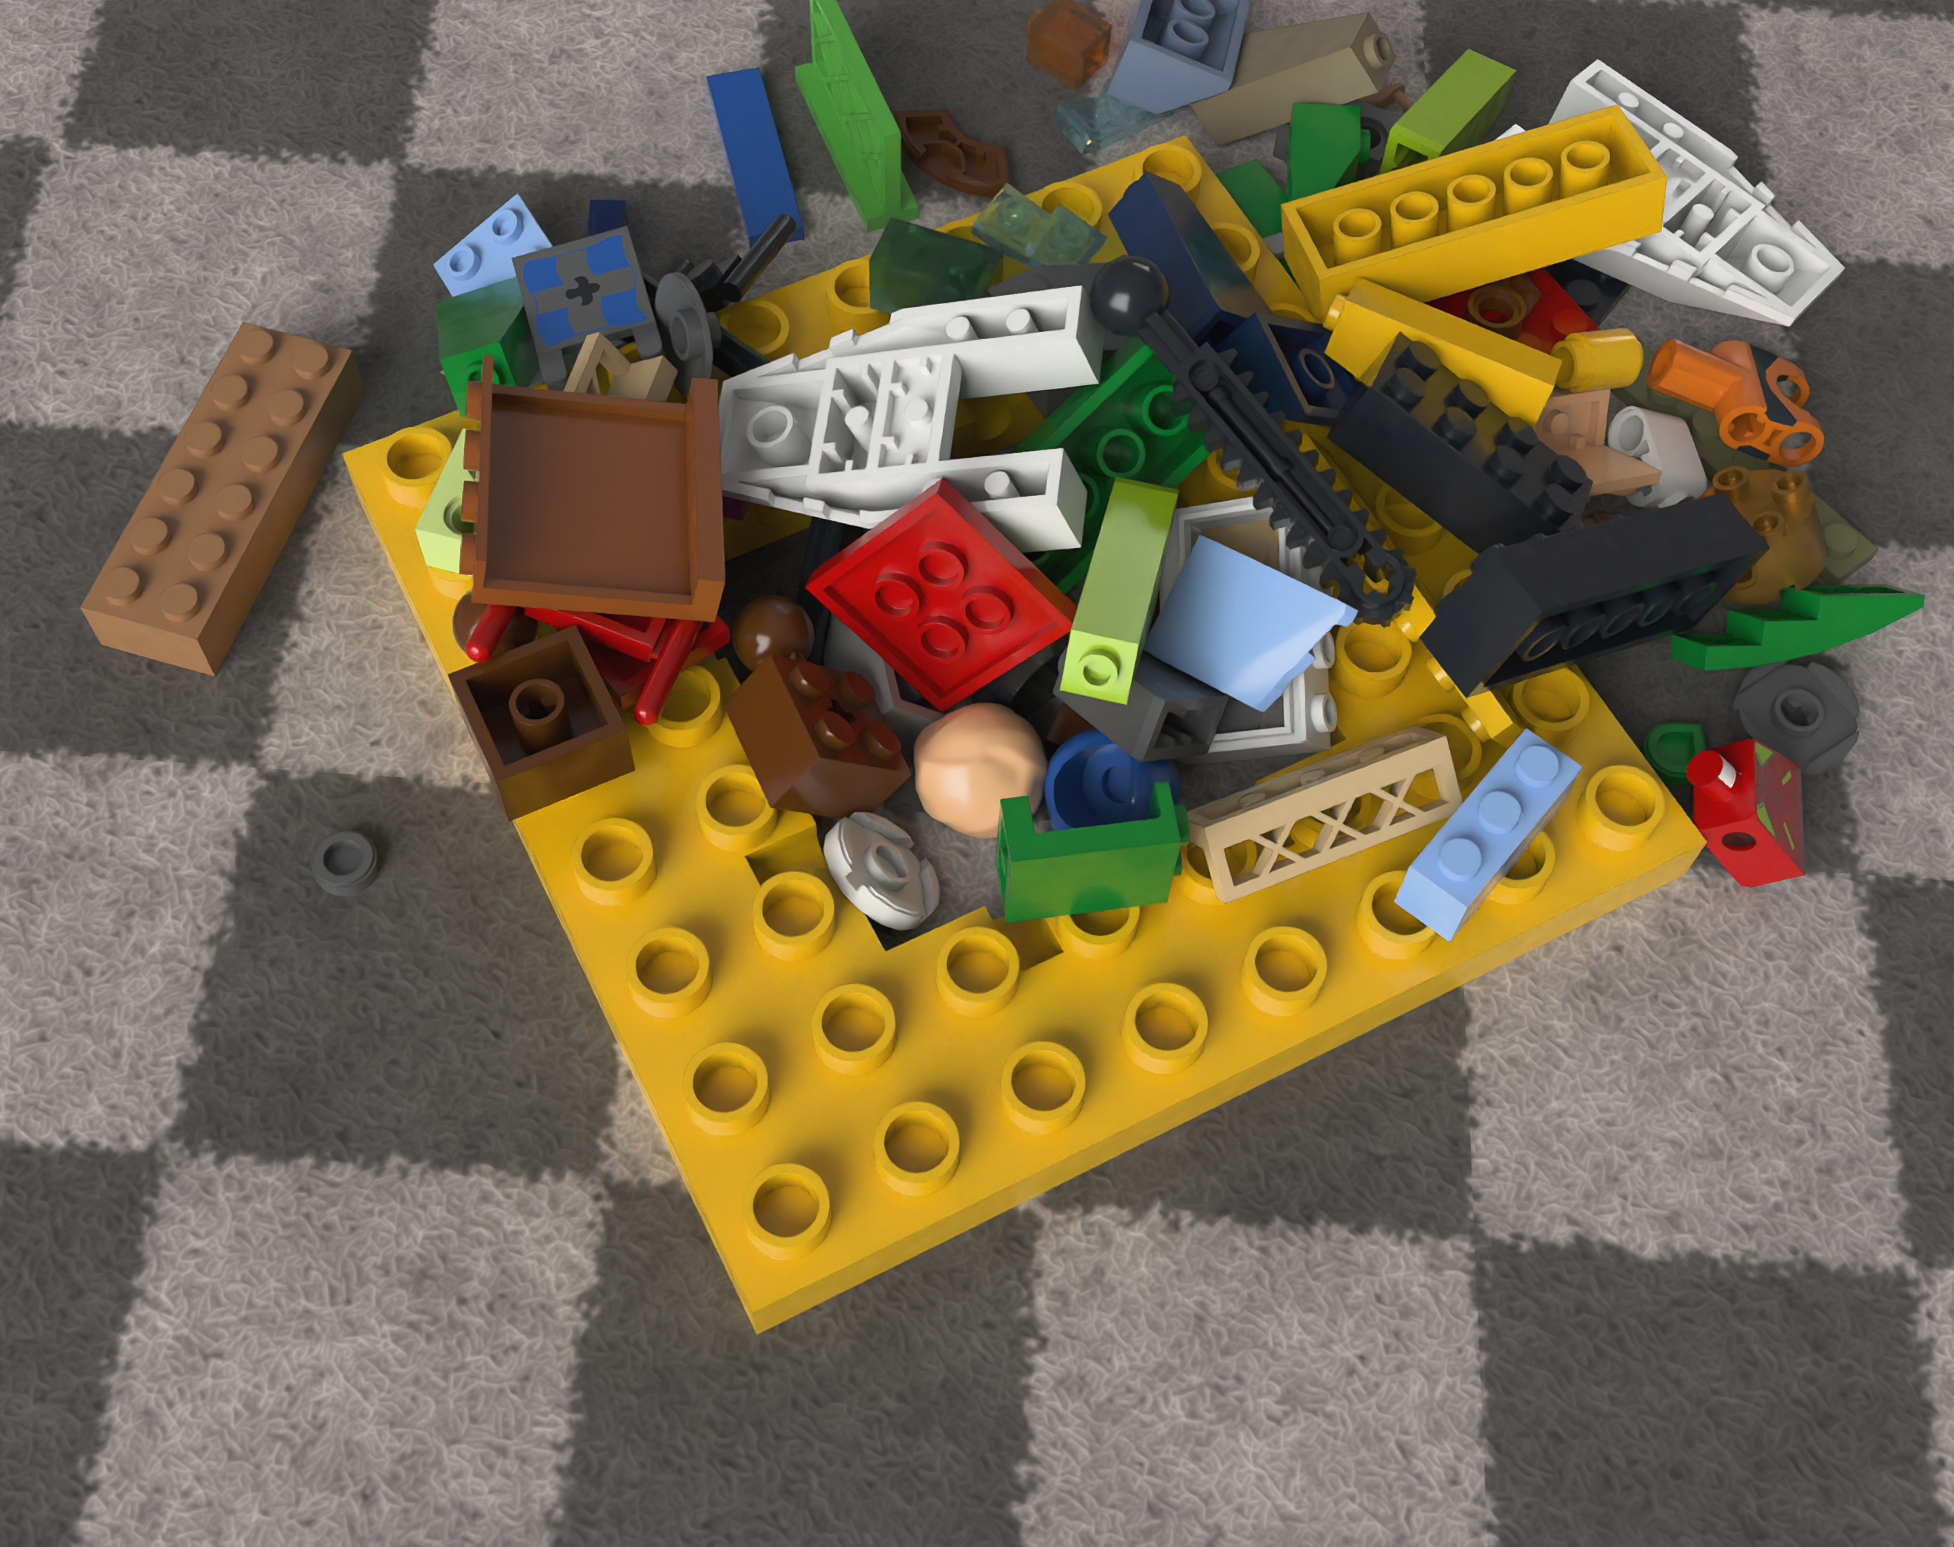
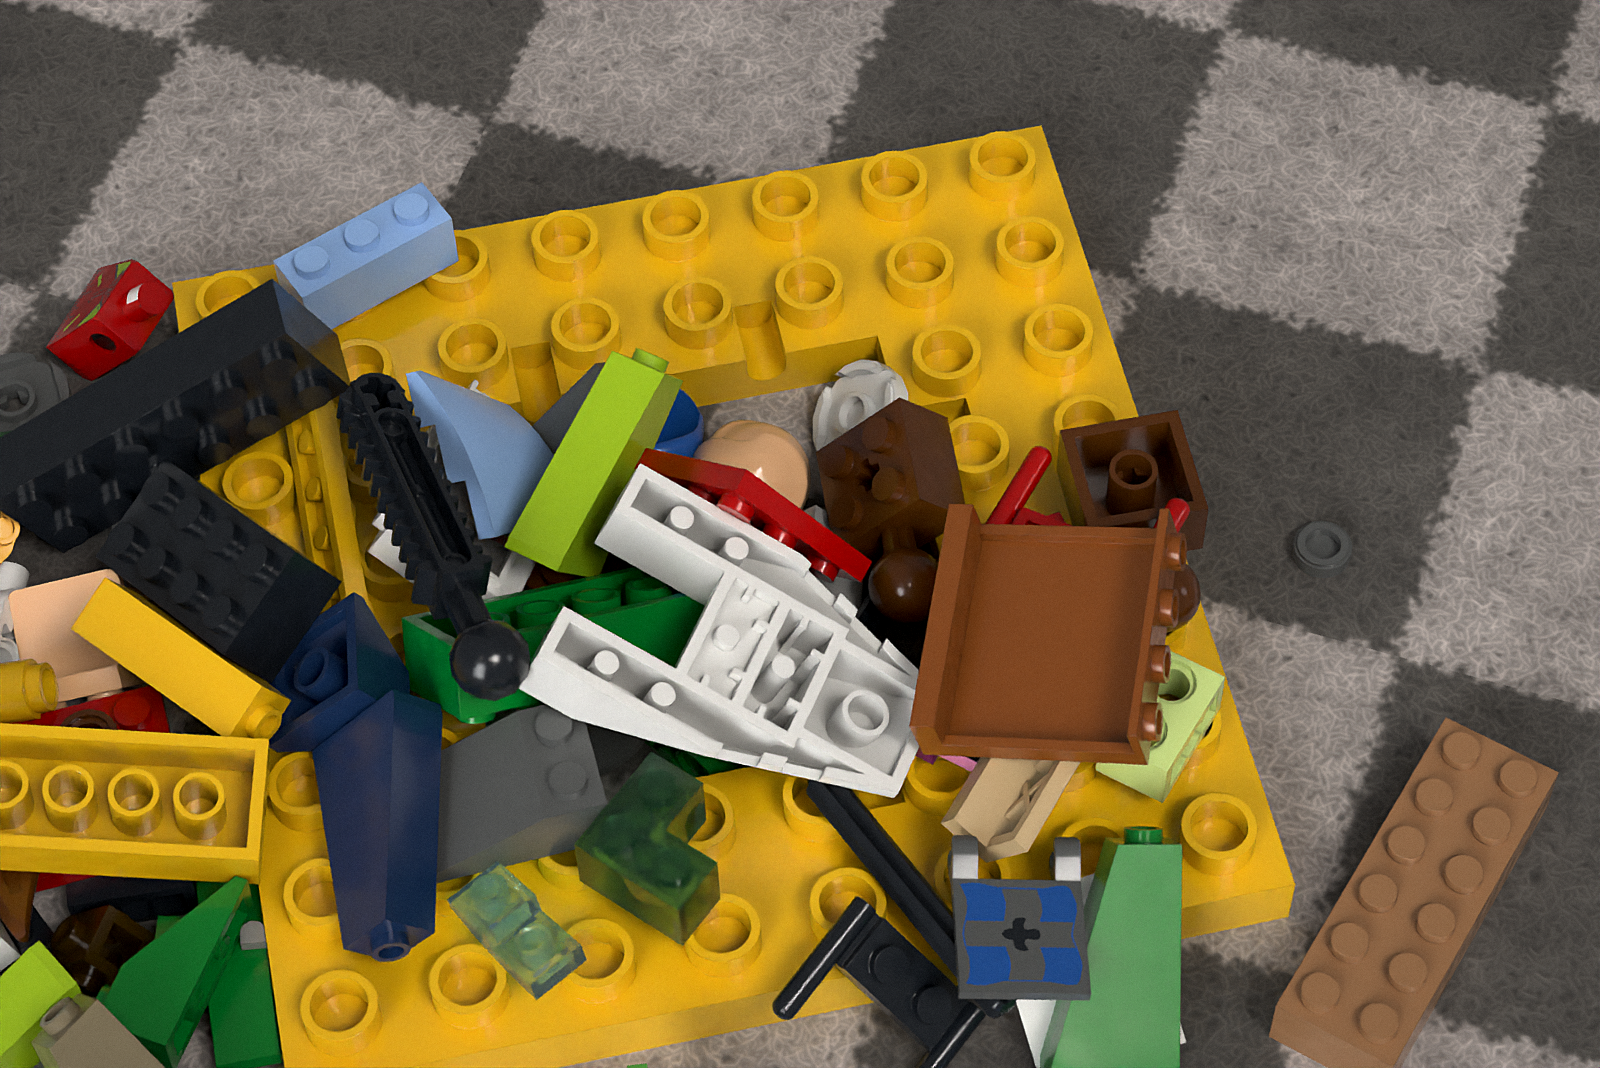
camera: 160 degrees left, 5 degrees down
(685, 329) = (920, 839): dark grey dish -> none
(1088, 865) = (700, 278): green panel -> none
(1317, 787) = (487, 323): tan fence -> none

